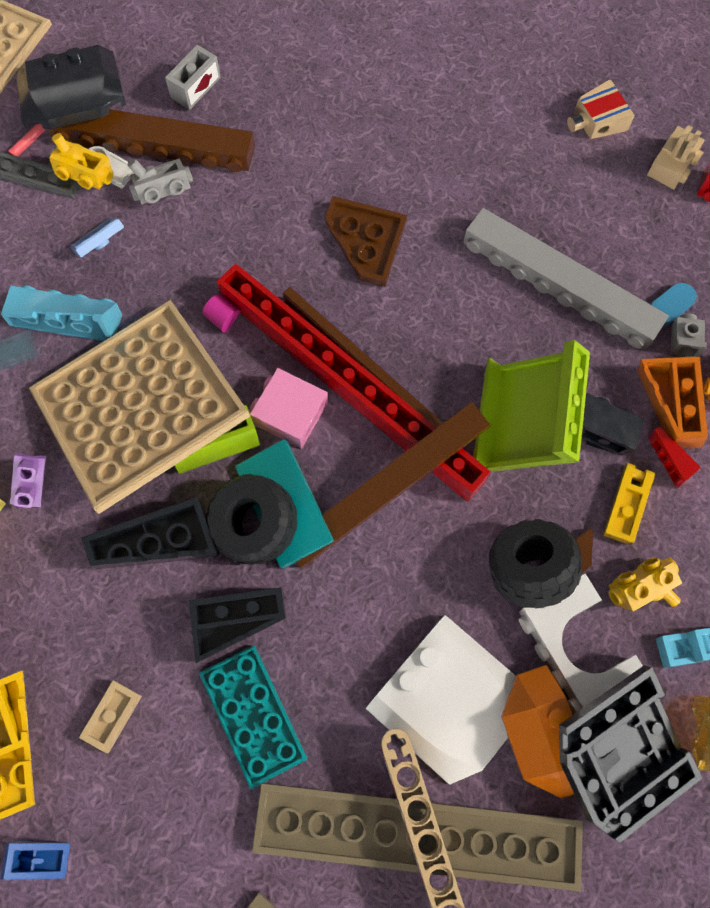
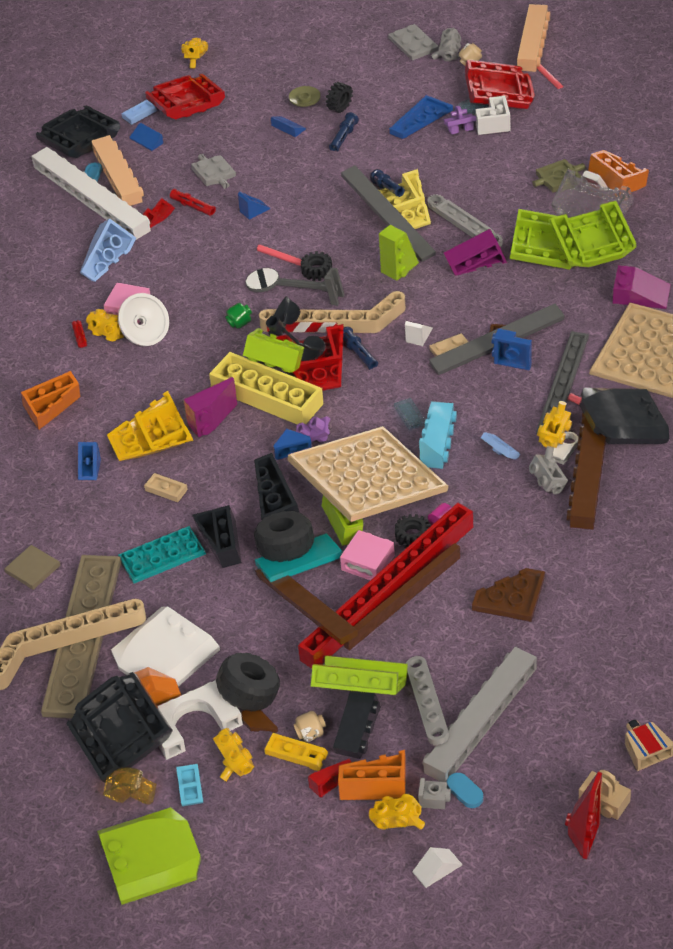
camera: 95 degrees right, 25 degrees down
(47, 516) = (290, 443): none -> blue slope
(193, 77) = (643, 482): light grey brick -> none
(241, 337) = (410, 523): none -> black tyre
(549, 335) = (427, 701): none -> light grey plate
(591, 484) = (309, 726): none -> tan head

